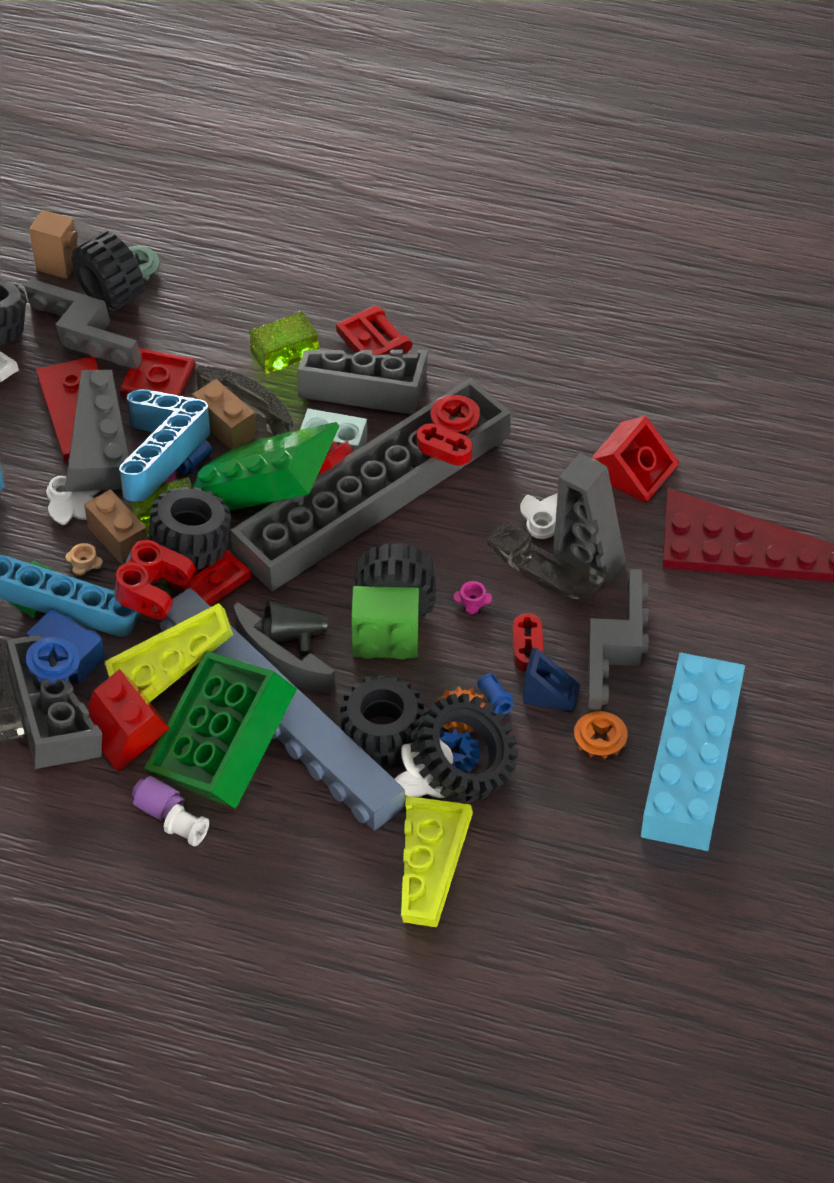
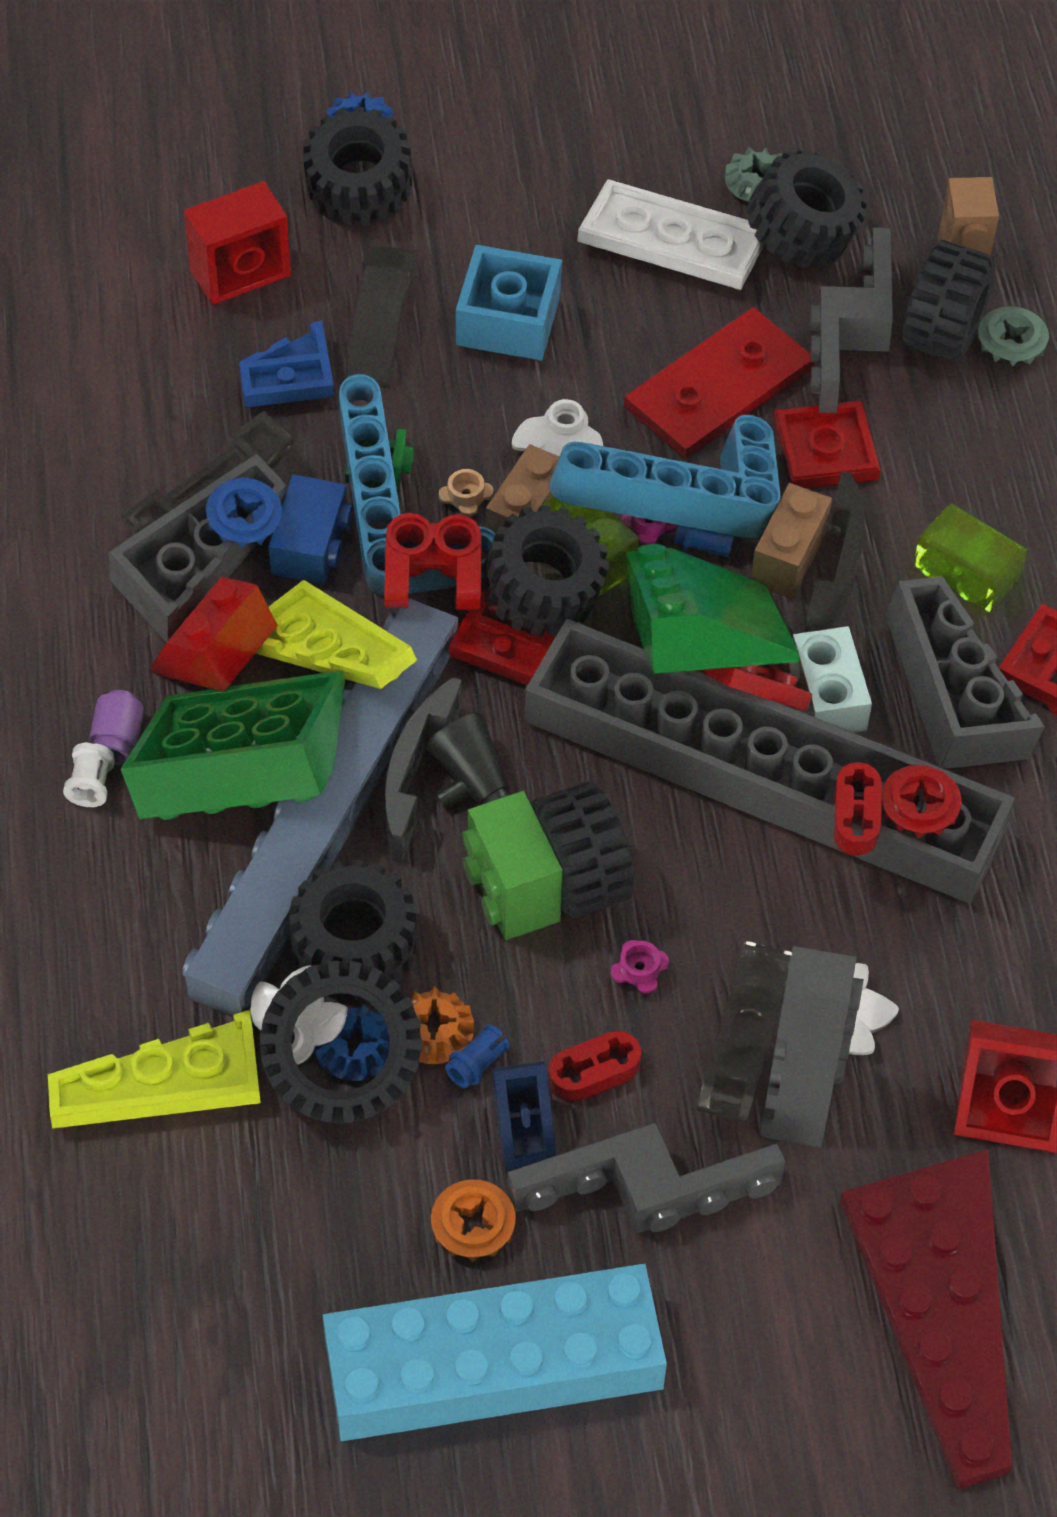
camera: 65 degrees right, 5 degrees up
(97, 435) = (662, 402): dark grey wedge -> none

